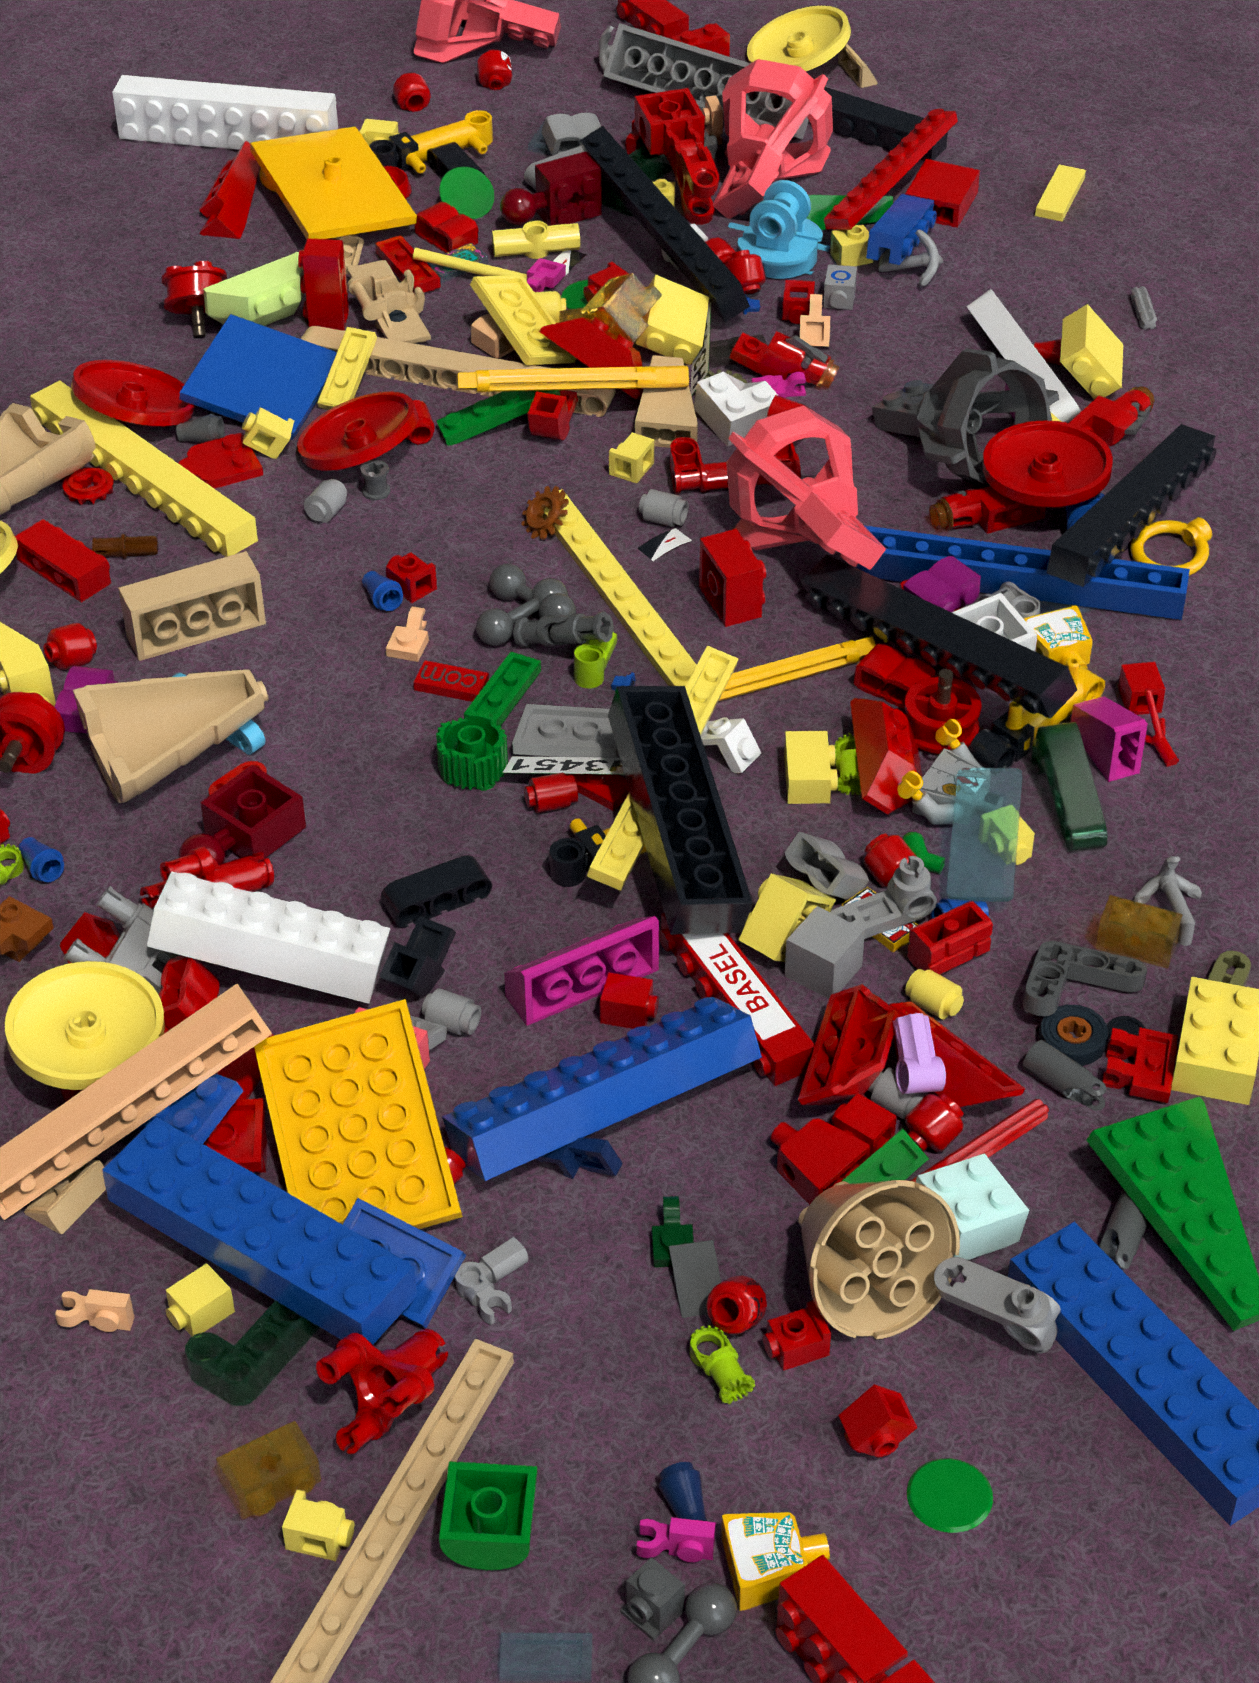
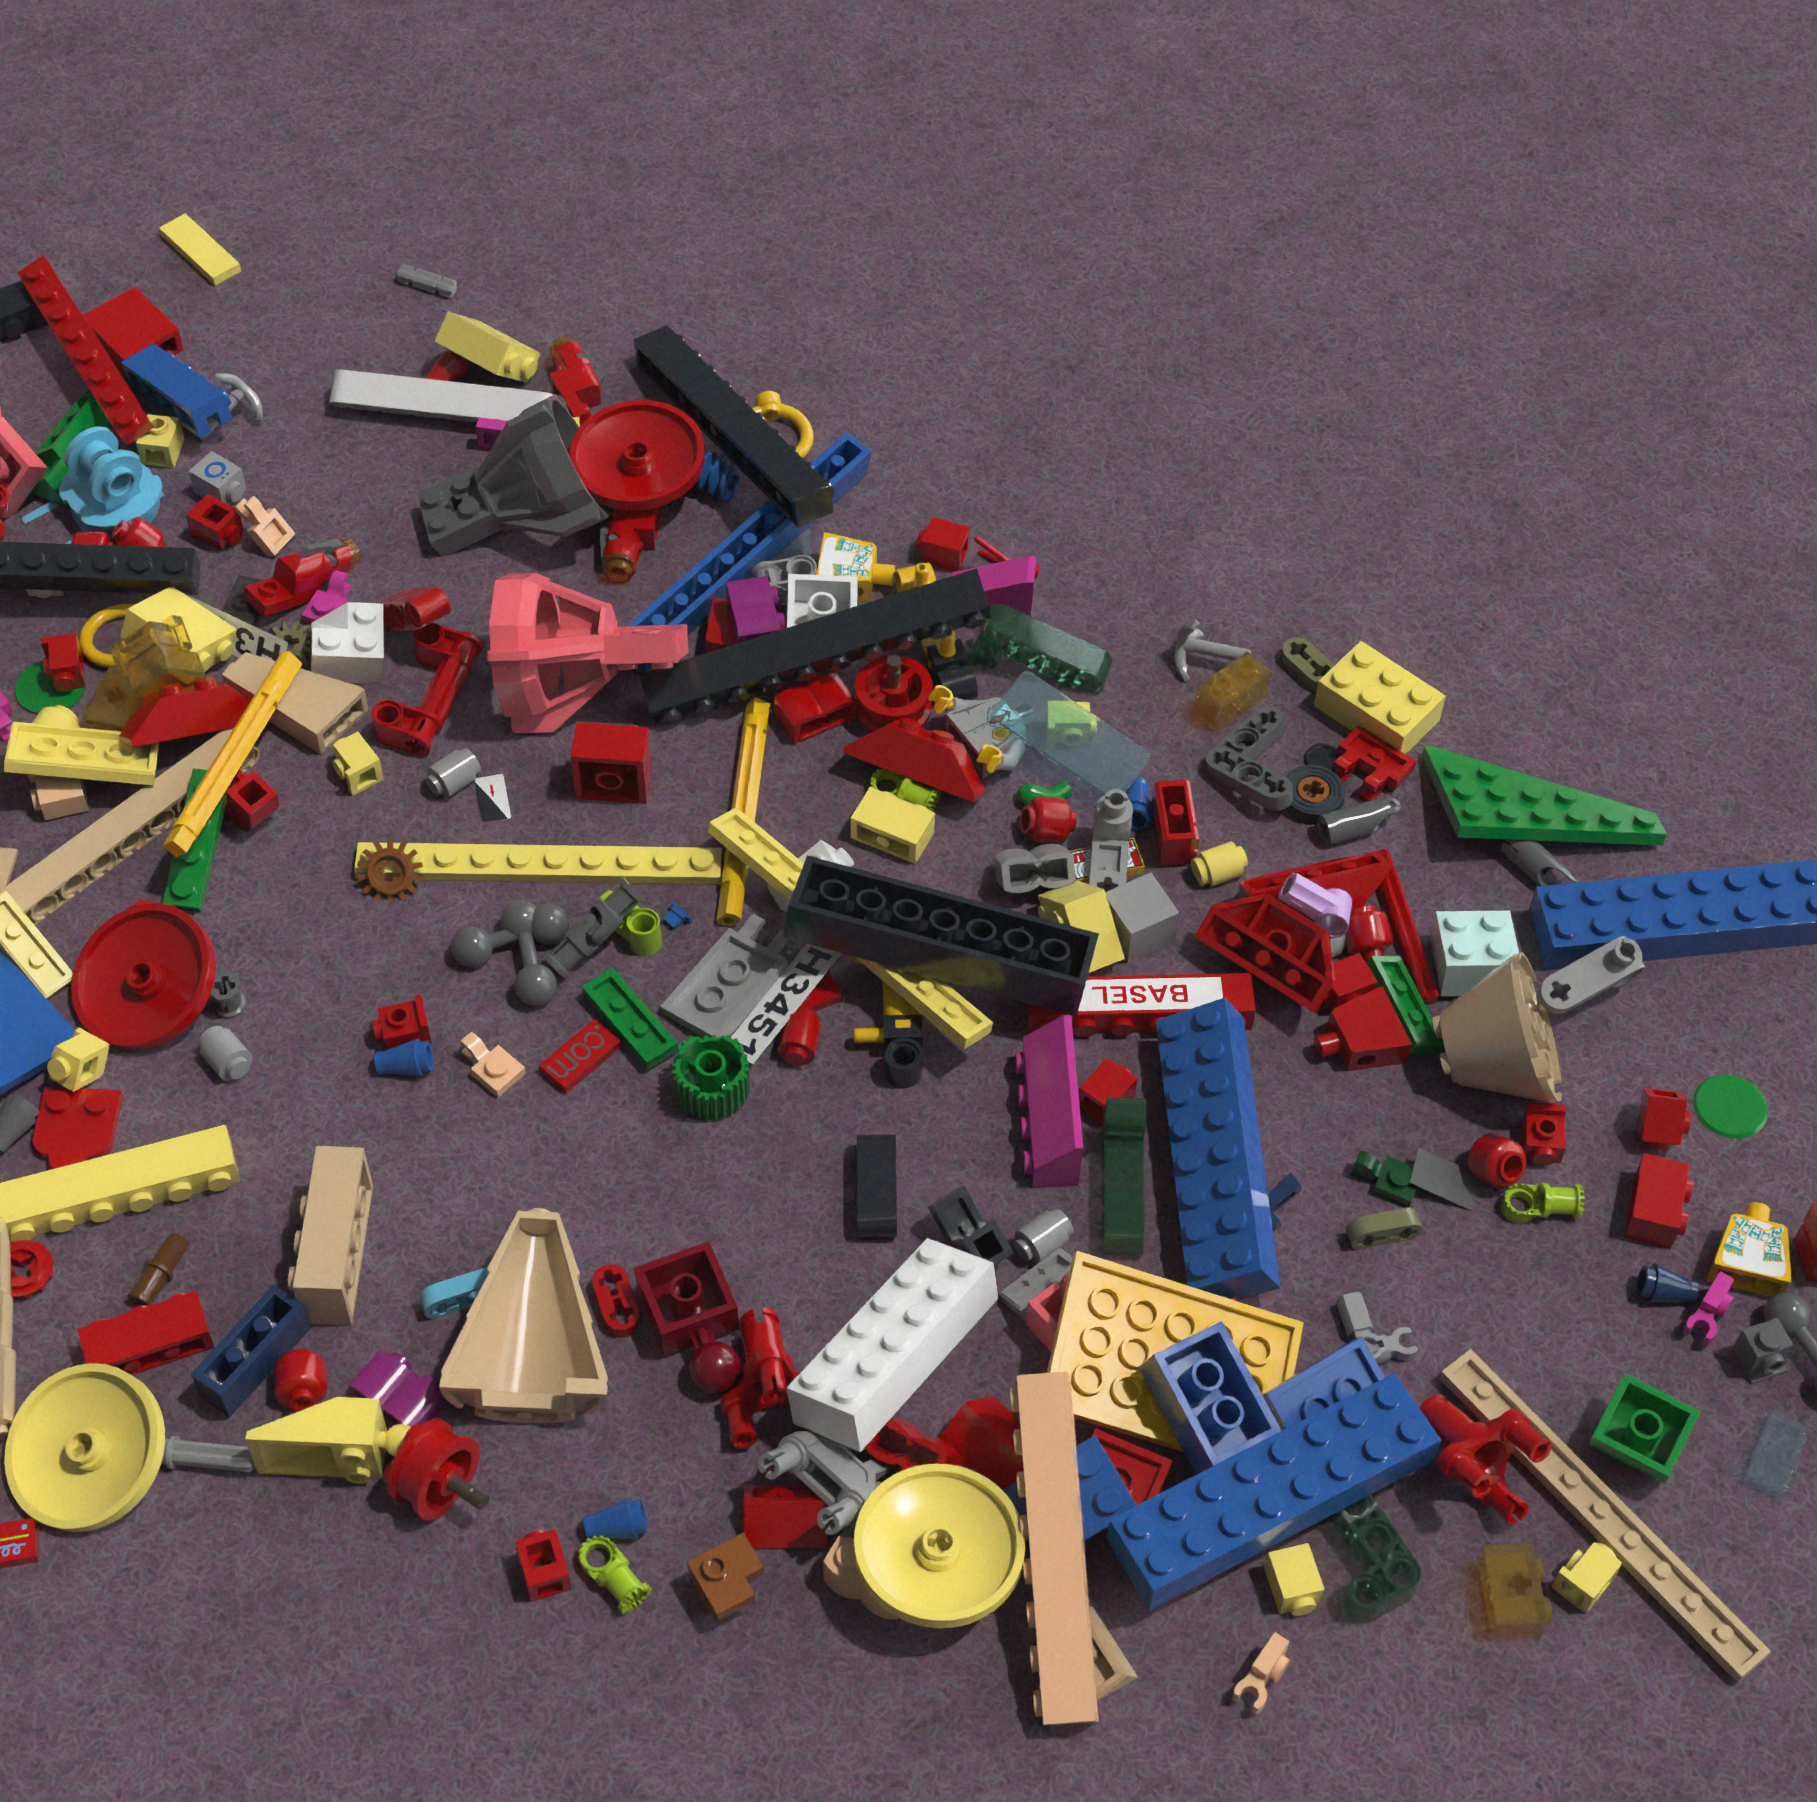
camera: 65 degrees left, 10 degrees up
(59, 603) = (251, 1350): none -> dark blue brick
(323, 1146) = (1208, 1397): none -> blue brick
(543, 1042) = (1123, 1175): none -> clear green beam
(609, 1247) = (1384, 1228): none -> olive beam
(778, 1454) = (1658, 1201): none -> red brick

